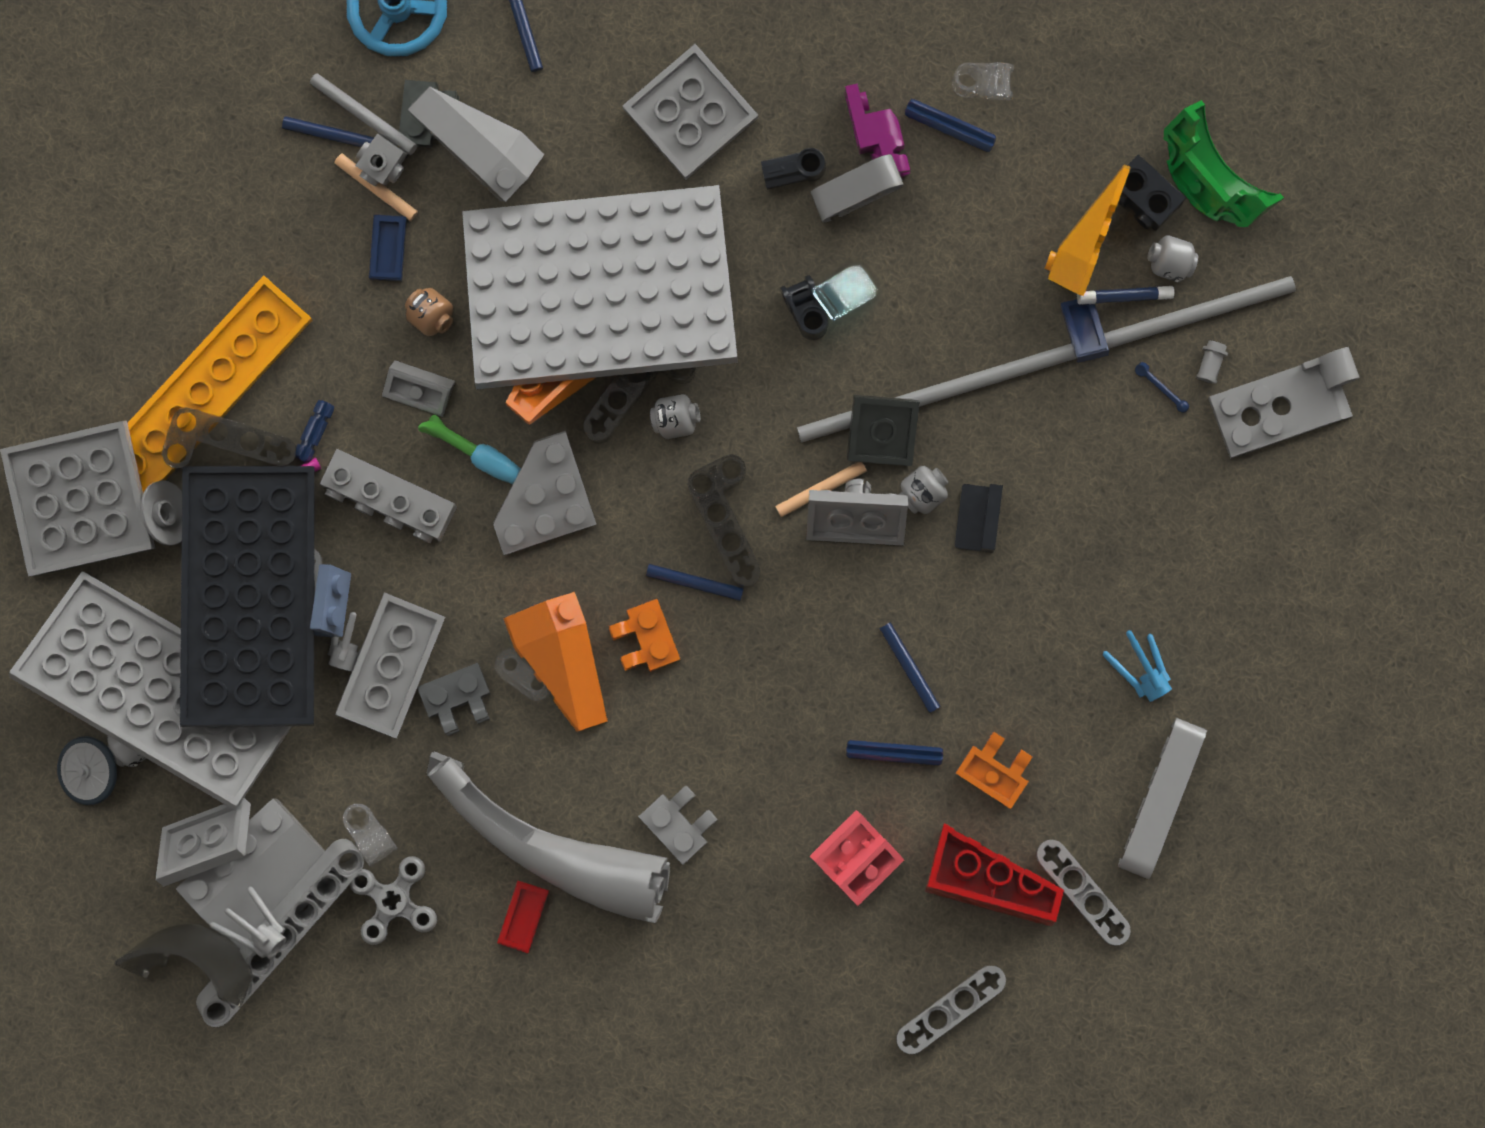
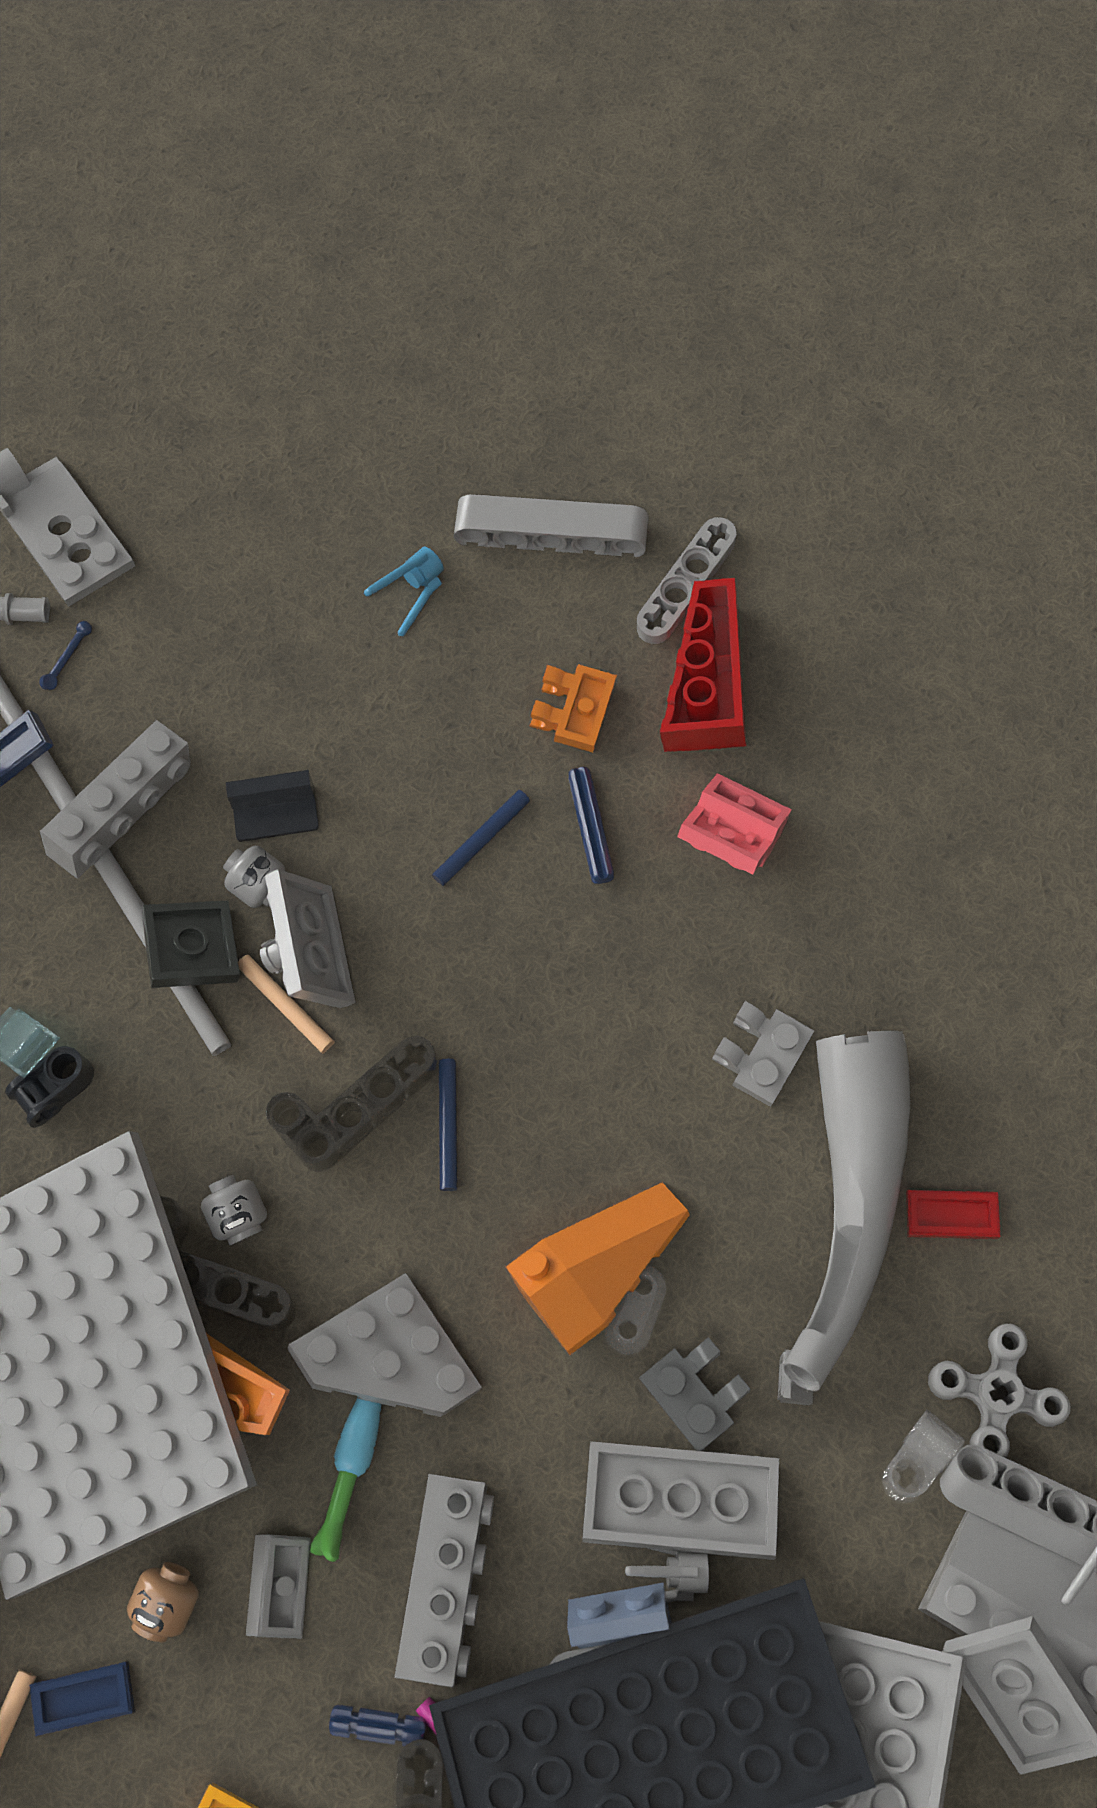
camera: 105 degrees left, 15 degrees down
(652, 635) = (534, 1156): orange plate -> none
(948, 1006) = (878, 675): light grey beam -> none
(1014, 402) = (116, 799): none -> light grey brick

